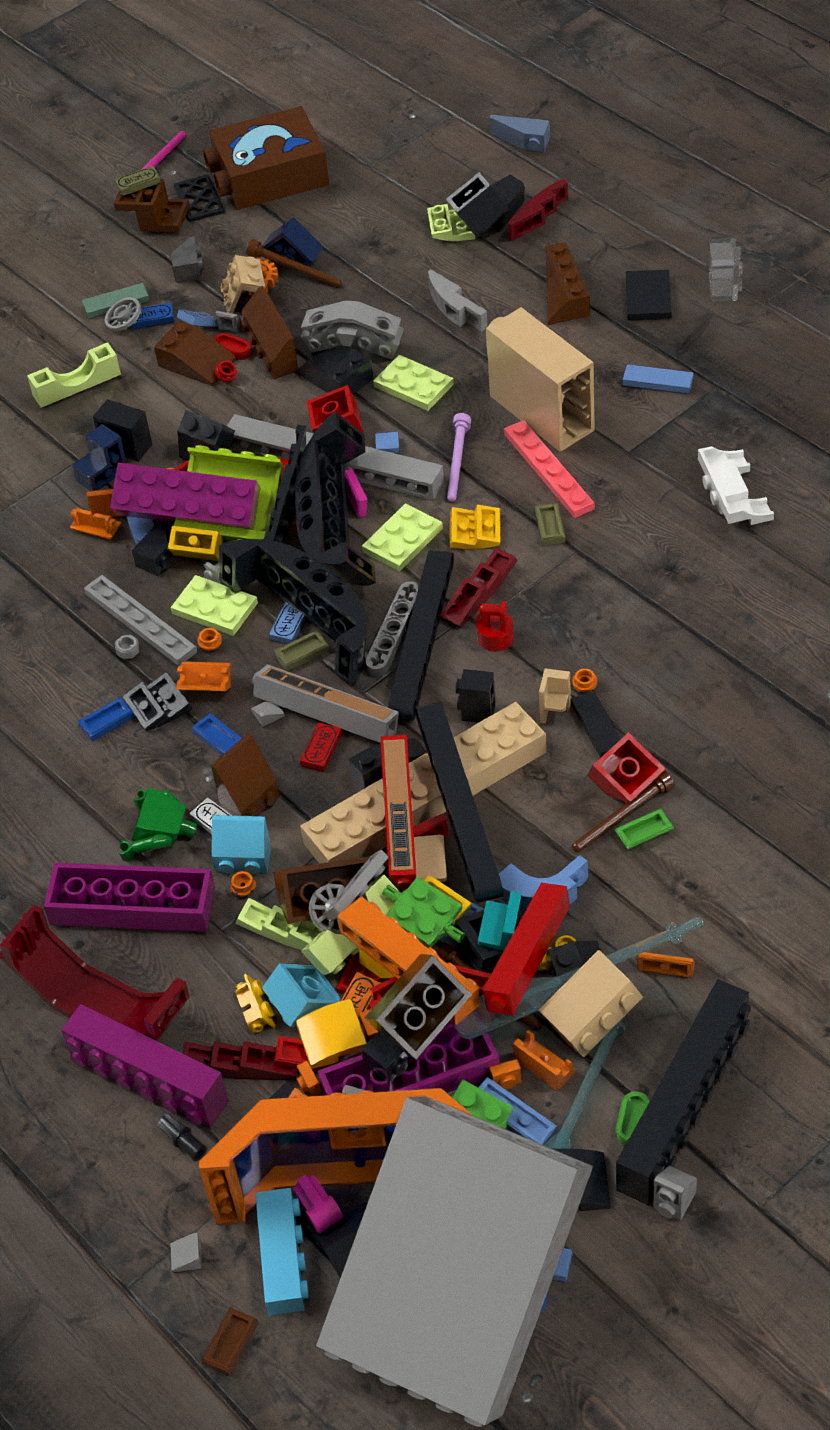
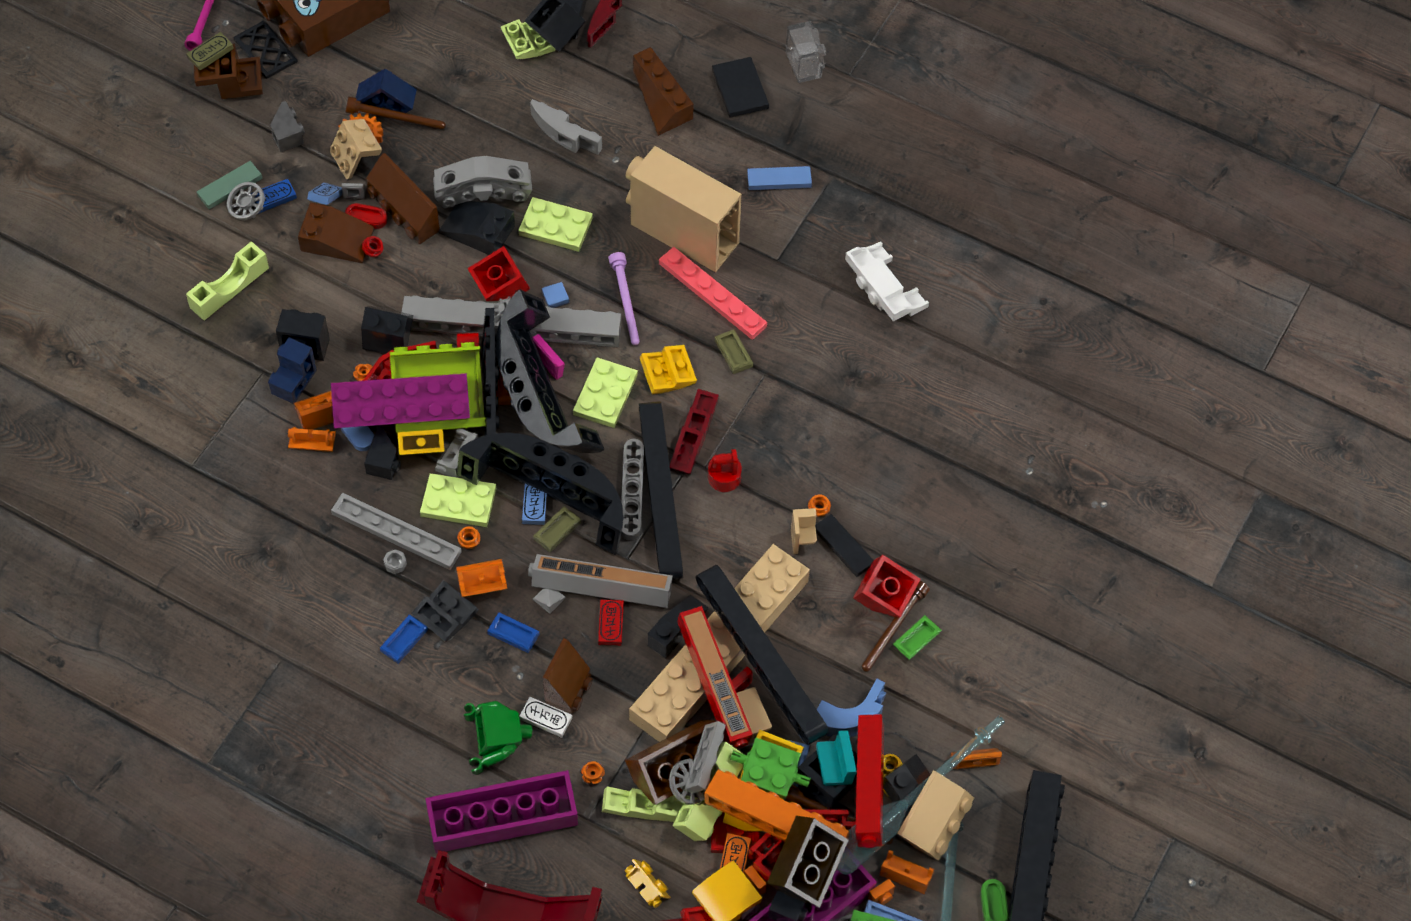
camera: 25 degrees left, 10 degrees up
(240, 844) = (581, 738): medium azure slope -> none
(298, 991) = (685, 864): medium azure slope -> none
(476, 695) = (735, 545): black brick -> none

